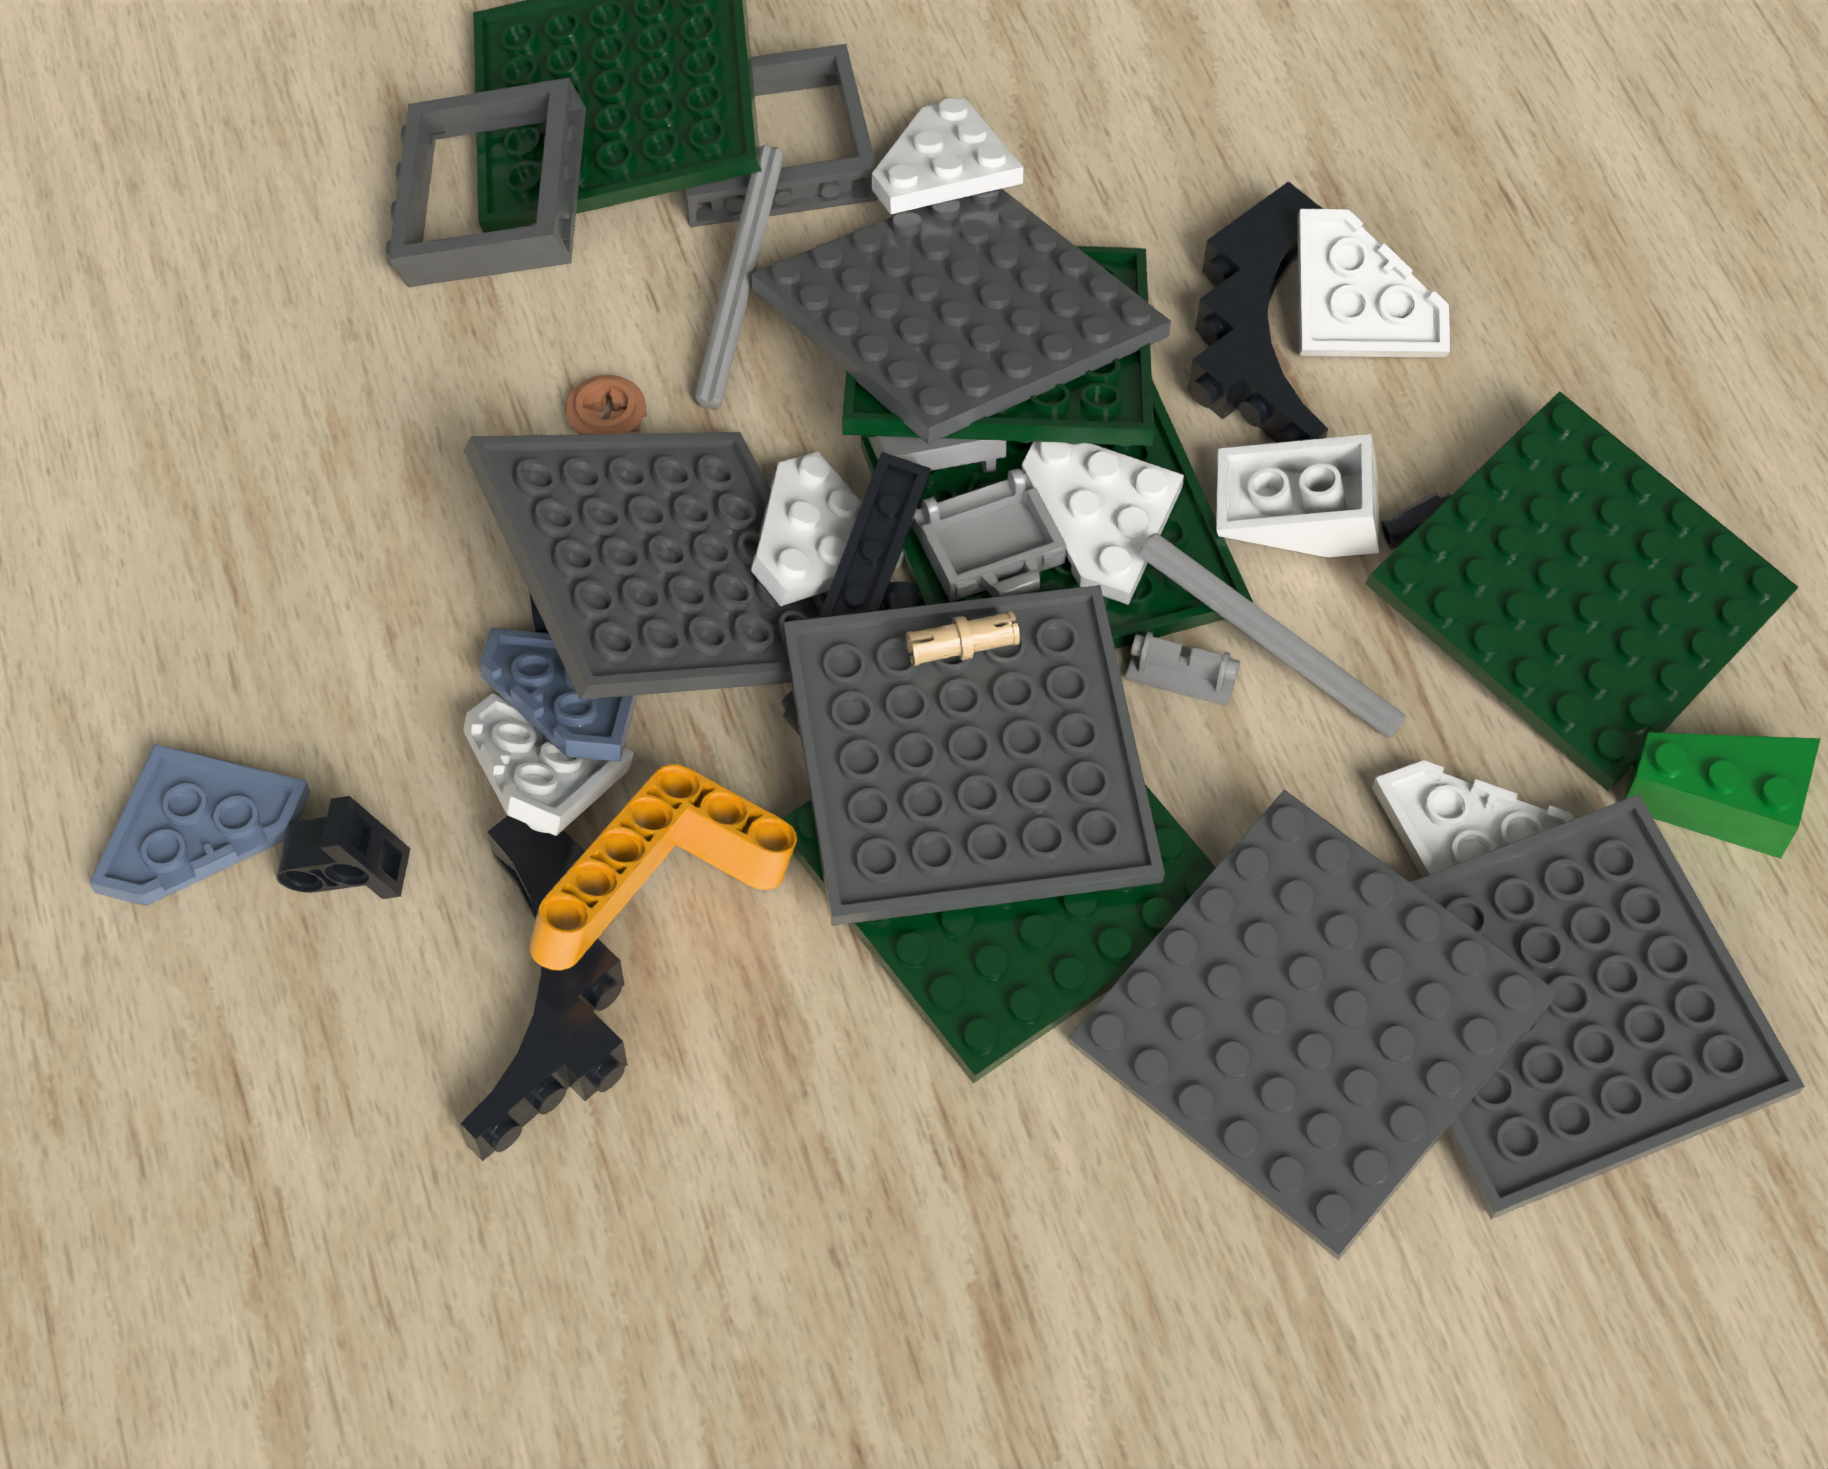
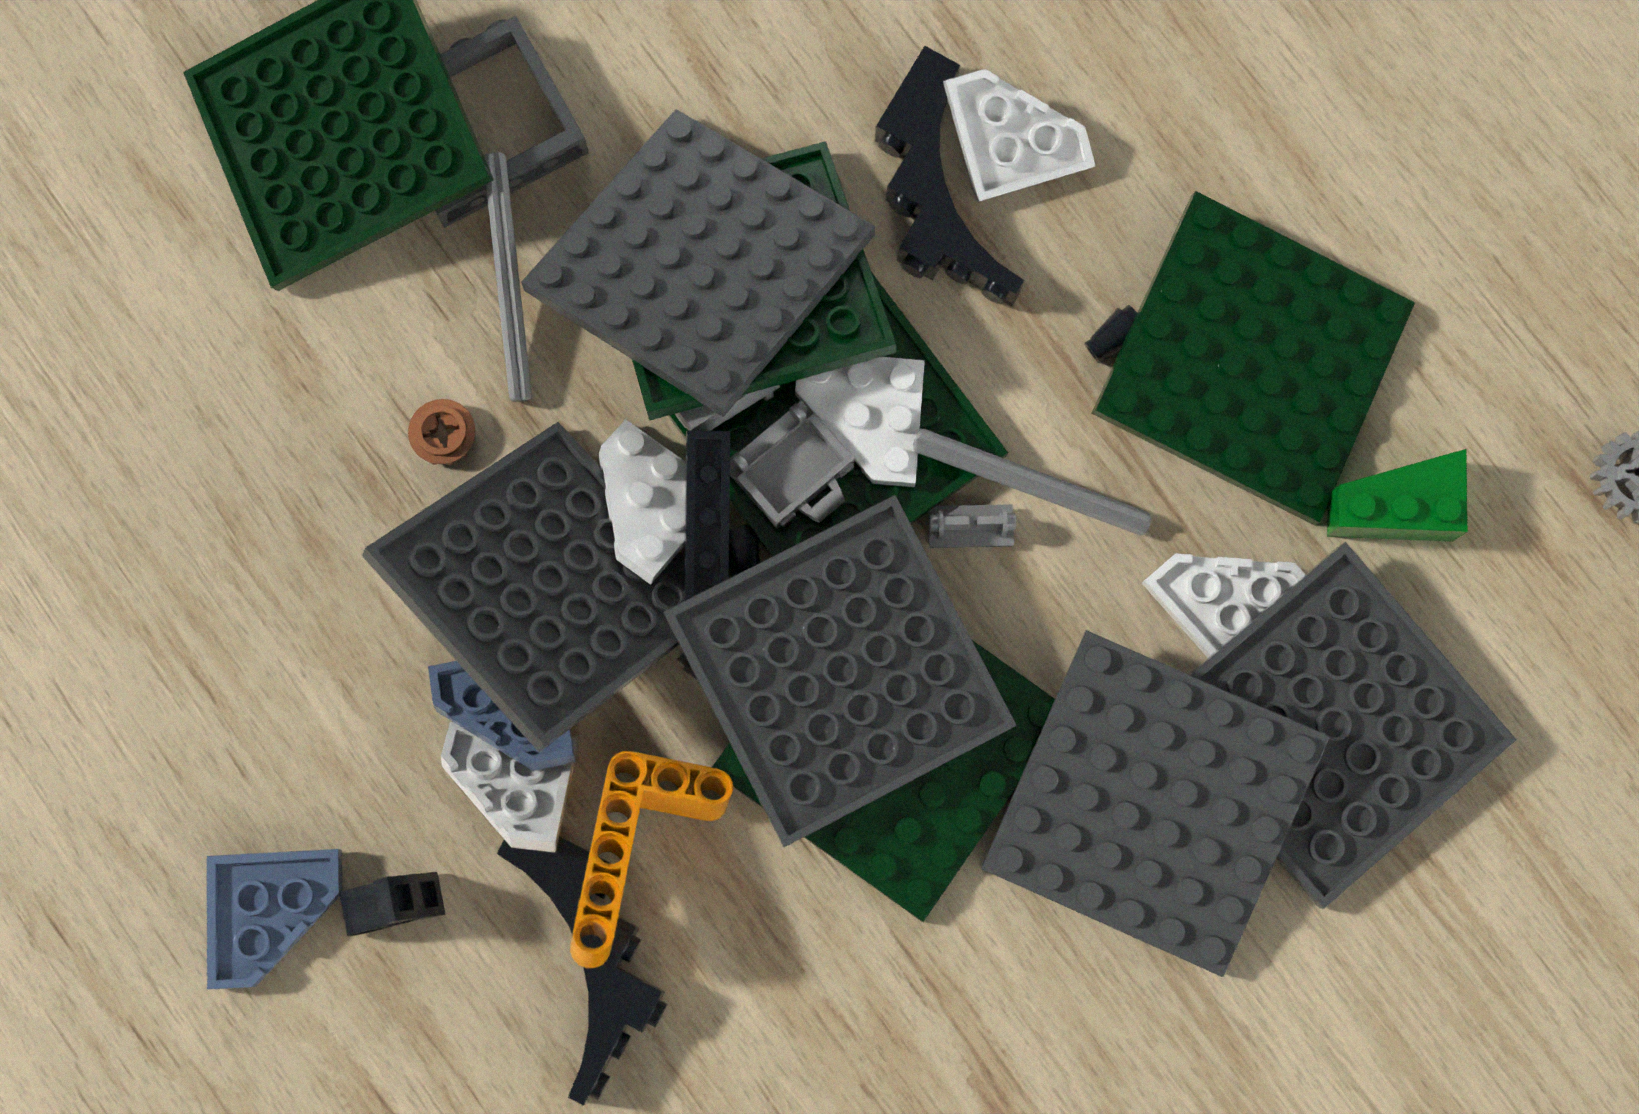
camera: 20 degrees left, 20 degrees up
(497, 251) = (328, 238): dark grey window -> none
(942, 158) = (635, 106): white plate -> none
(962, 638) = (807, 584): tan pin -> none
(1301, 495) = (1017, 346): white slope -> none

